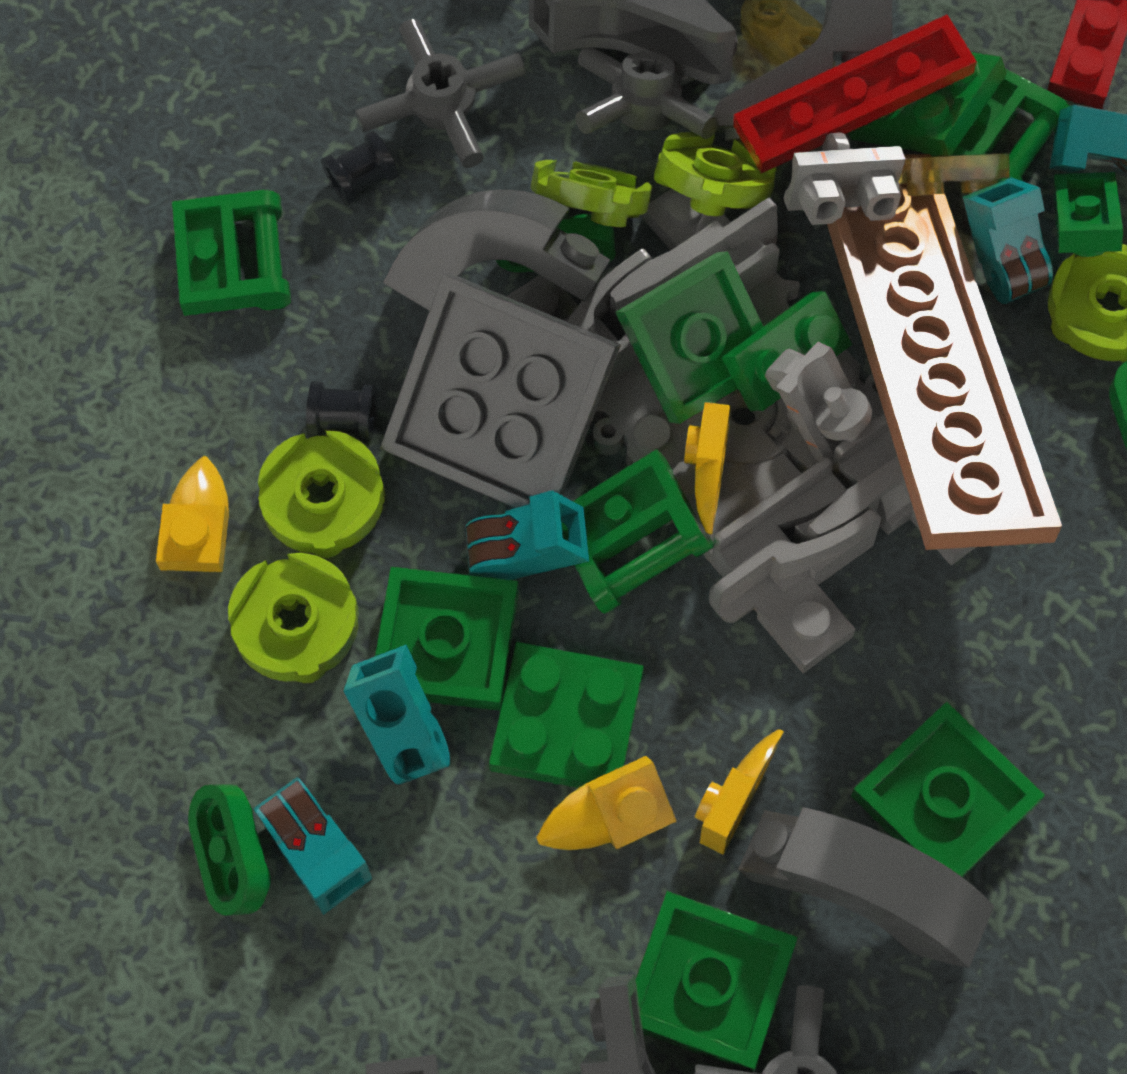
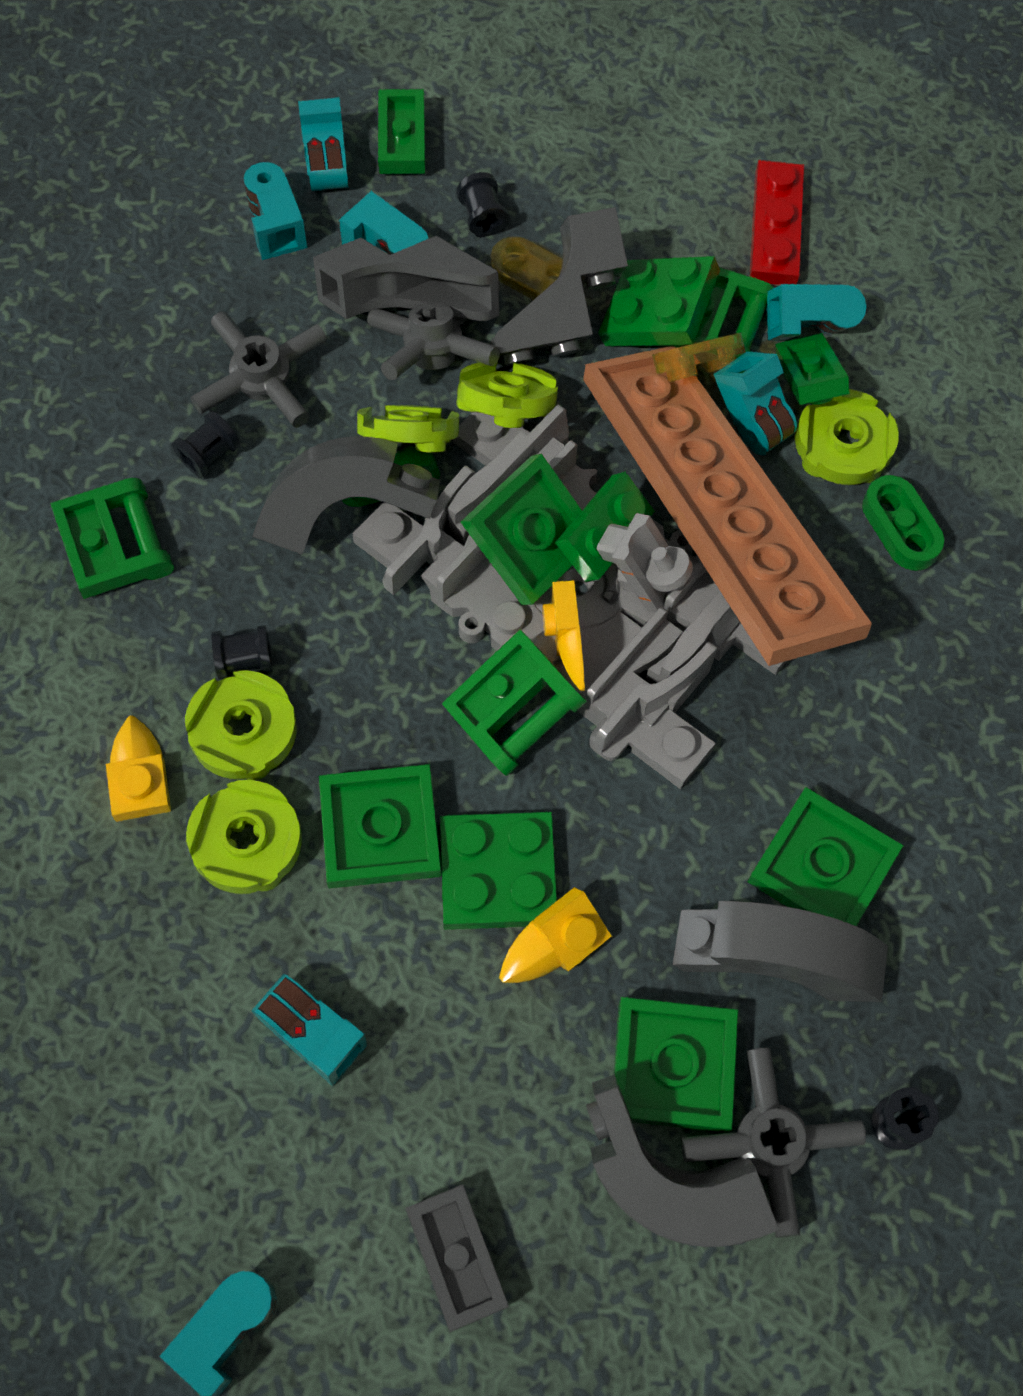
camera: 20 degrees left, 0 degrees up
(228, 849) = (238, 1050): green plate -> none
(397, 715) = (357, 901): teal leg -> none
(498, 394) = (376, 612): dark grey plate -> none
(527, 539) = (429, 727): teal leg -> none
(726, 804) = (650, 913): yellow plate -> none
(845, 178) = (618, 375): light grey hips -> none
(854, 93) = (606, 307): red plate -> none

